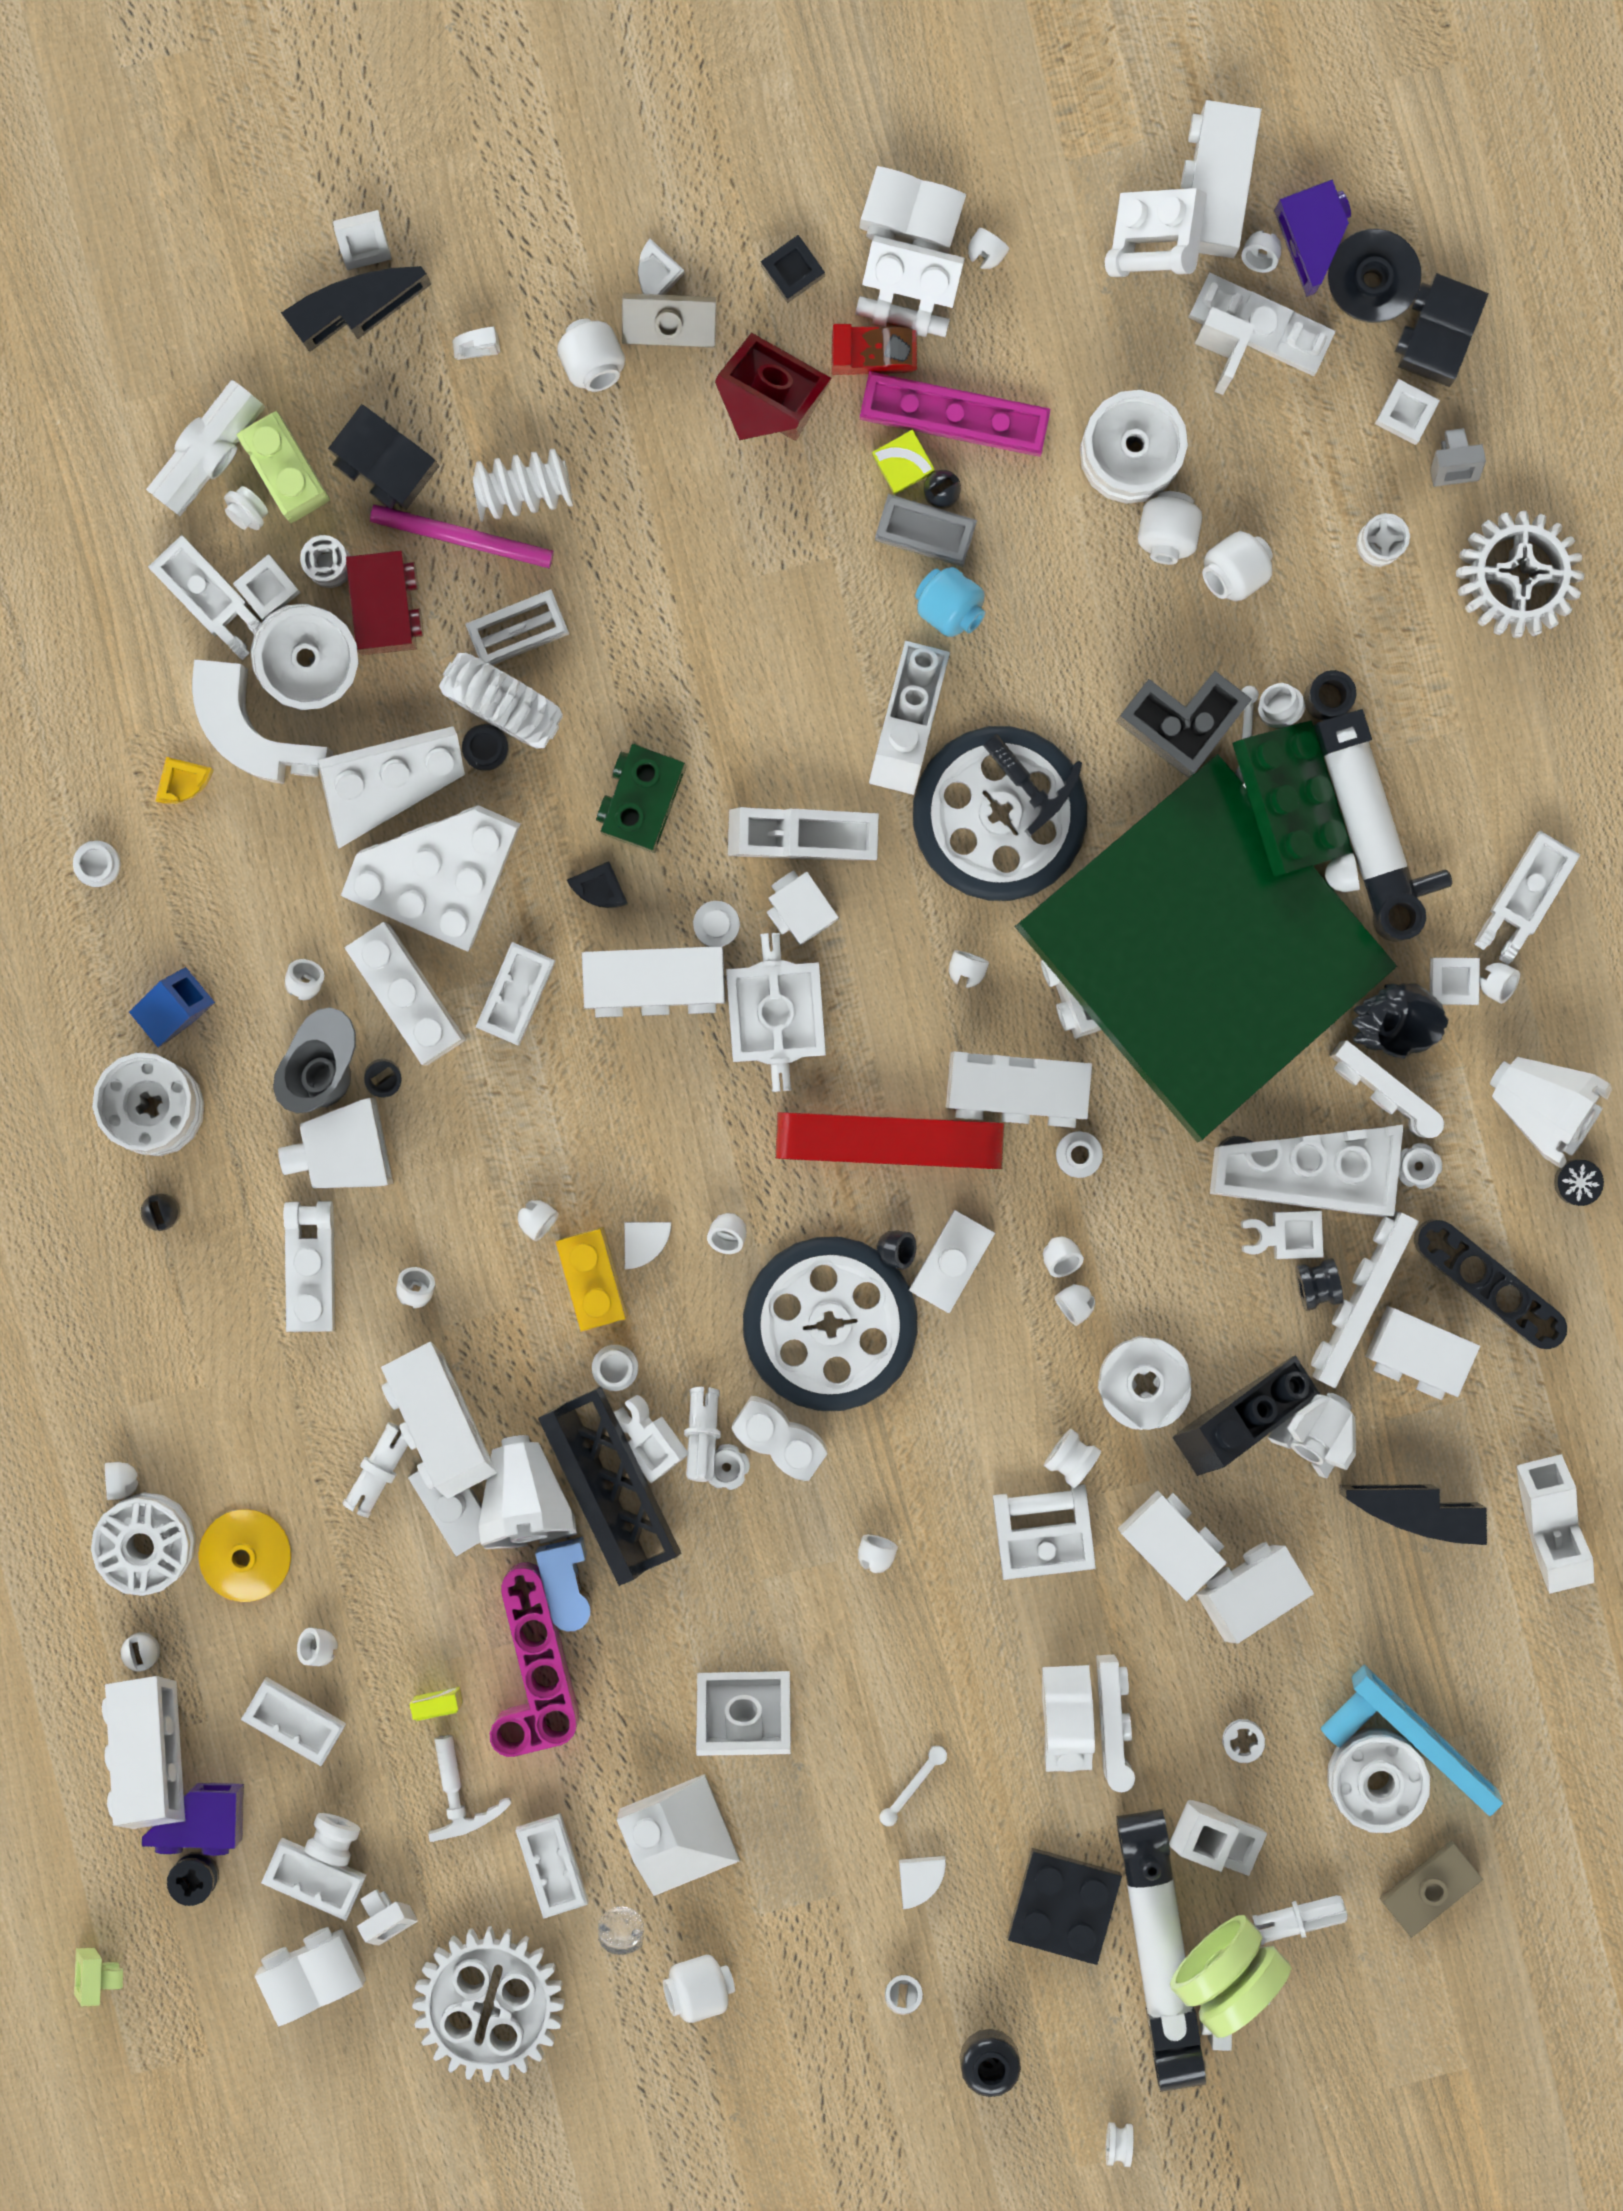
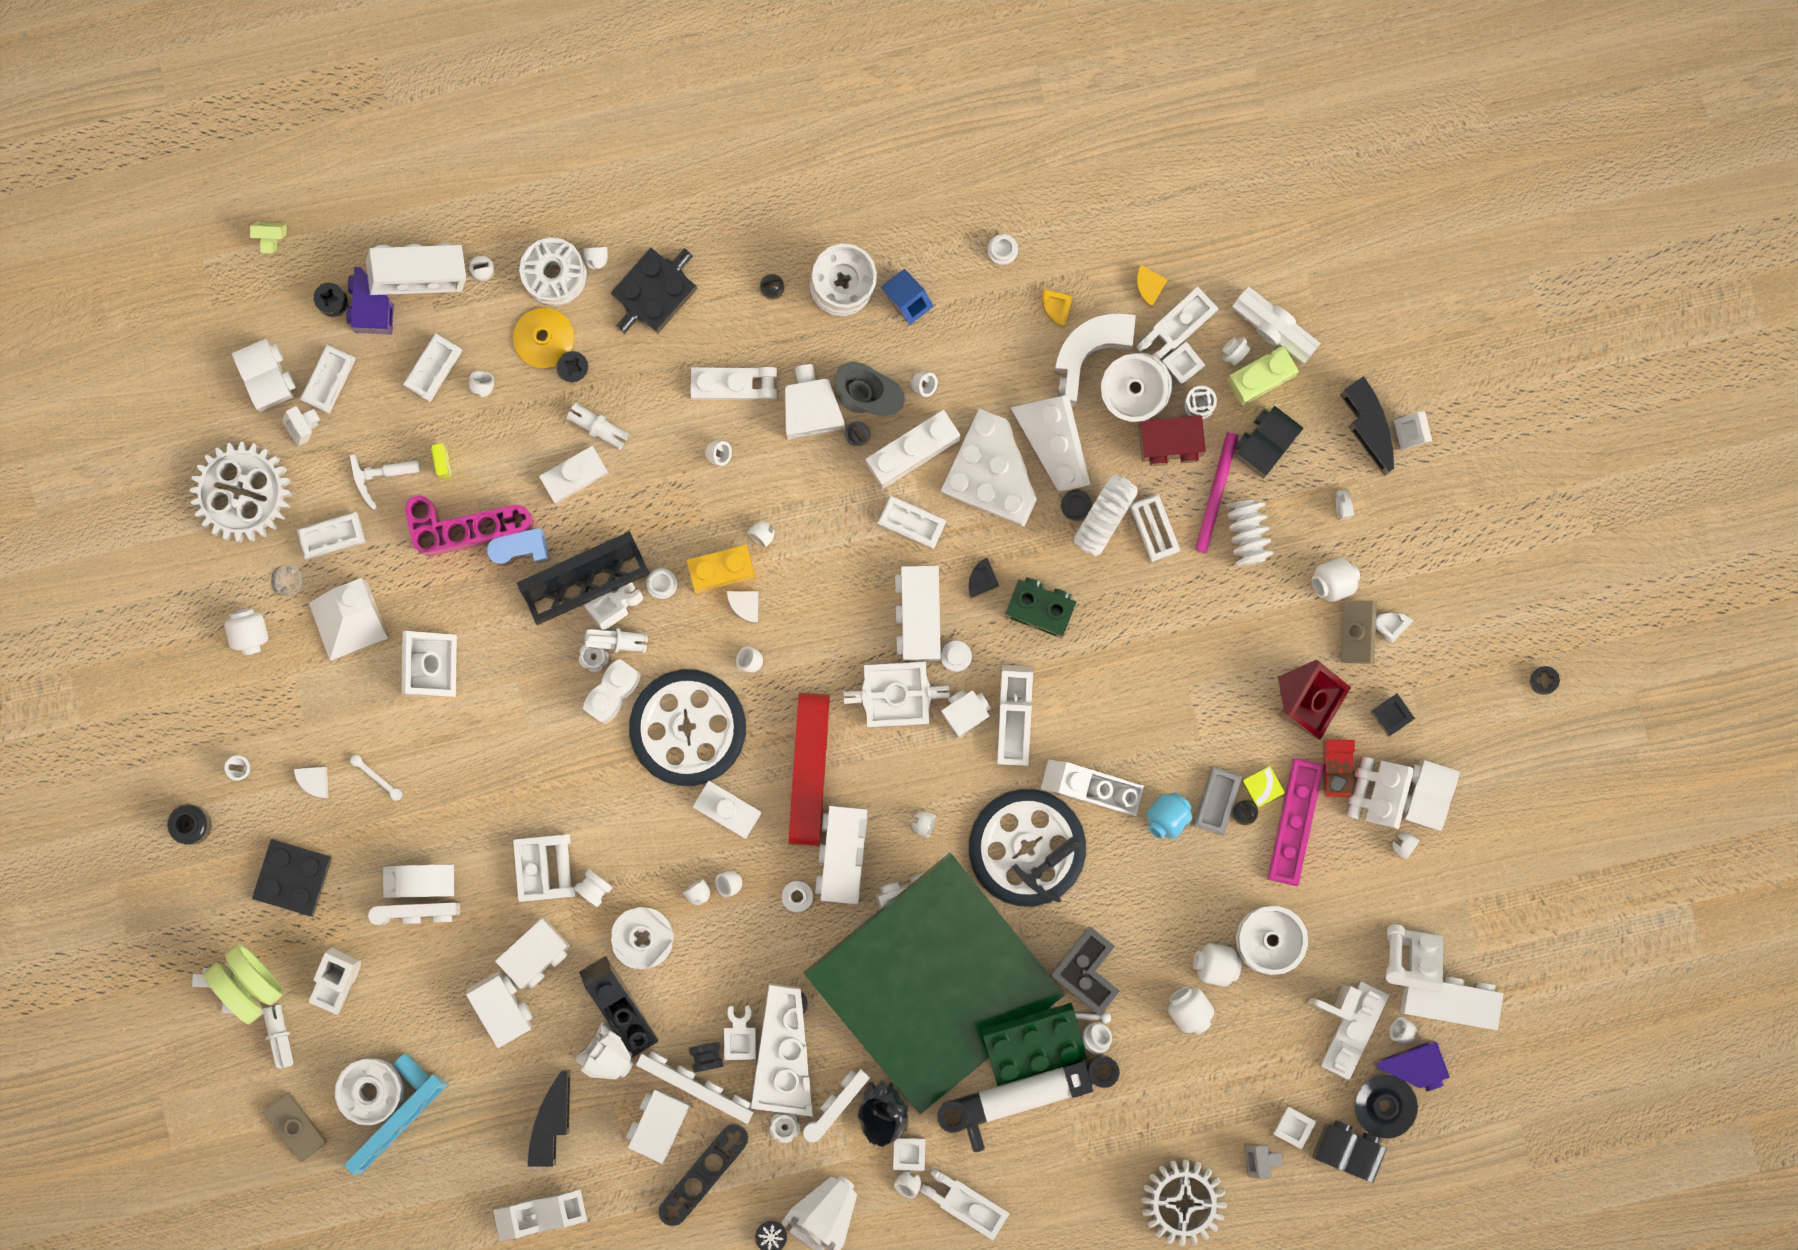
camera: 90 degrees right, 5 degrees down
(146, 640) = (1149, 285): none -> yellow tile
(169, 1390) = (654, 290): none -> black plate
(292, 1521) = (568, 368): none -> black wheel
(332, 1839) = (353, 391): white wheel -> none
(436, 1421) = (629, 464): white brick -> none
(523, 1499) = (576, 520): white cone -> none
(747, 50) = (1538, 687): none -> black bush
(876, 1553) = (533, 755): white hinge -> none
(897, 1248) = (736, 773): black hinge -> none
(1119, 2144) = (130, 911): white bush -> none
(1160, 1949) = (261, 941): piece -> none
(1256, 1748) = (393, 1008): white bush -> none
(1342, 874) = (983, 1078): white hinge -> none
(1389, 534) = (1212, 1109): white wheel -> none

